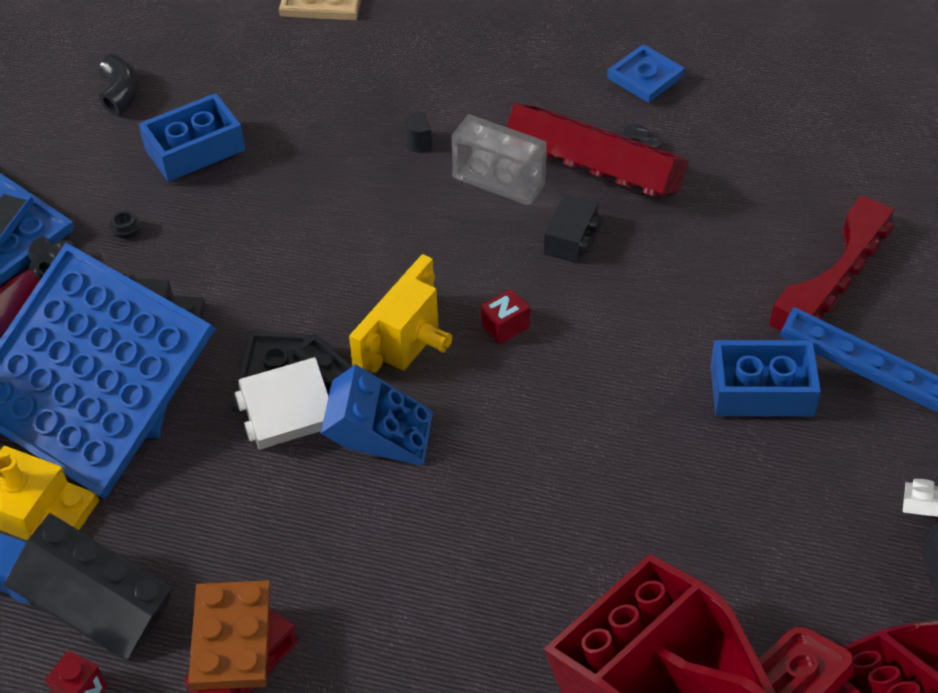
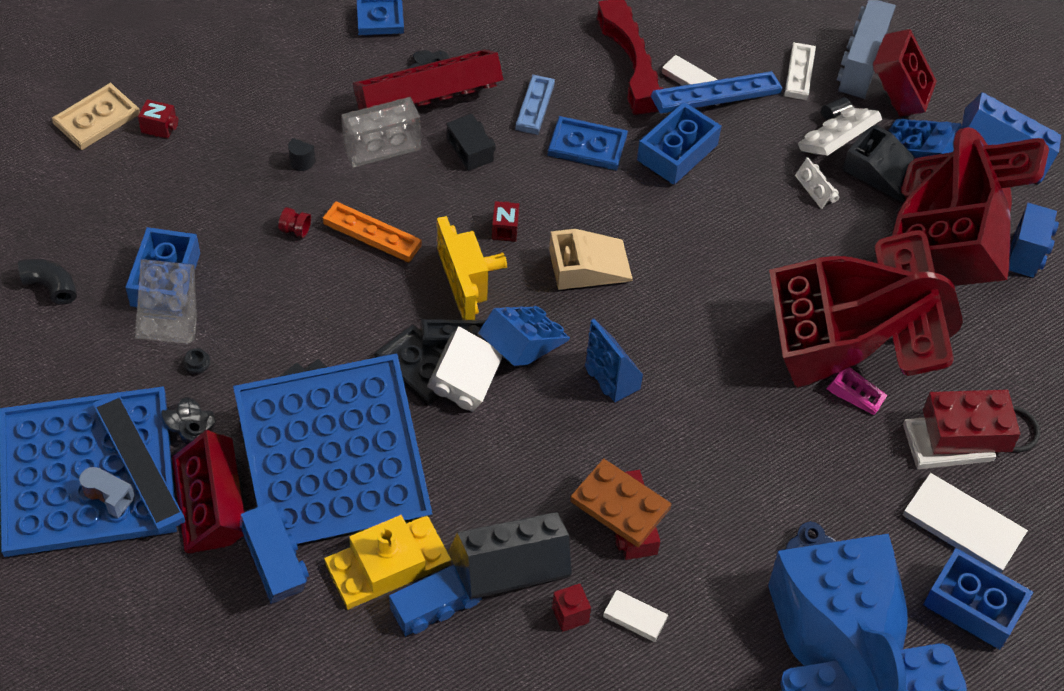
camera: 55 degrees left, 5 degrees up
(143, 158) = (166, 302): none -> clear slope
(338, 180) = (294, 222): none -> dark red wheel
(354, 28) = (157, 119): none -> dark red brick
(386, 235) = (372, 231): none -> orange plate
(406, 506) = (611, 364): none -> blue slope
(528, 407) = (587, 259): none -> tan slope
(682, 244) = (535, 104): none -> medium blue tile
(684, 314) = (587, 143): none -> blue tile
(872, 526) = (816, 183): none -> white hinge
(875, 325) = (685, 72): none -> white tile

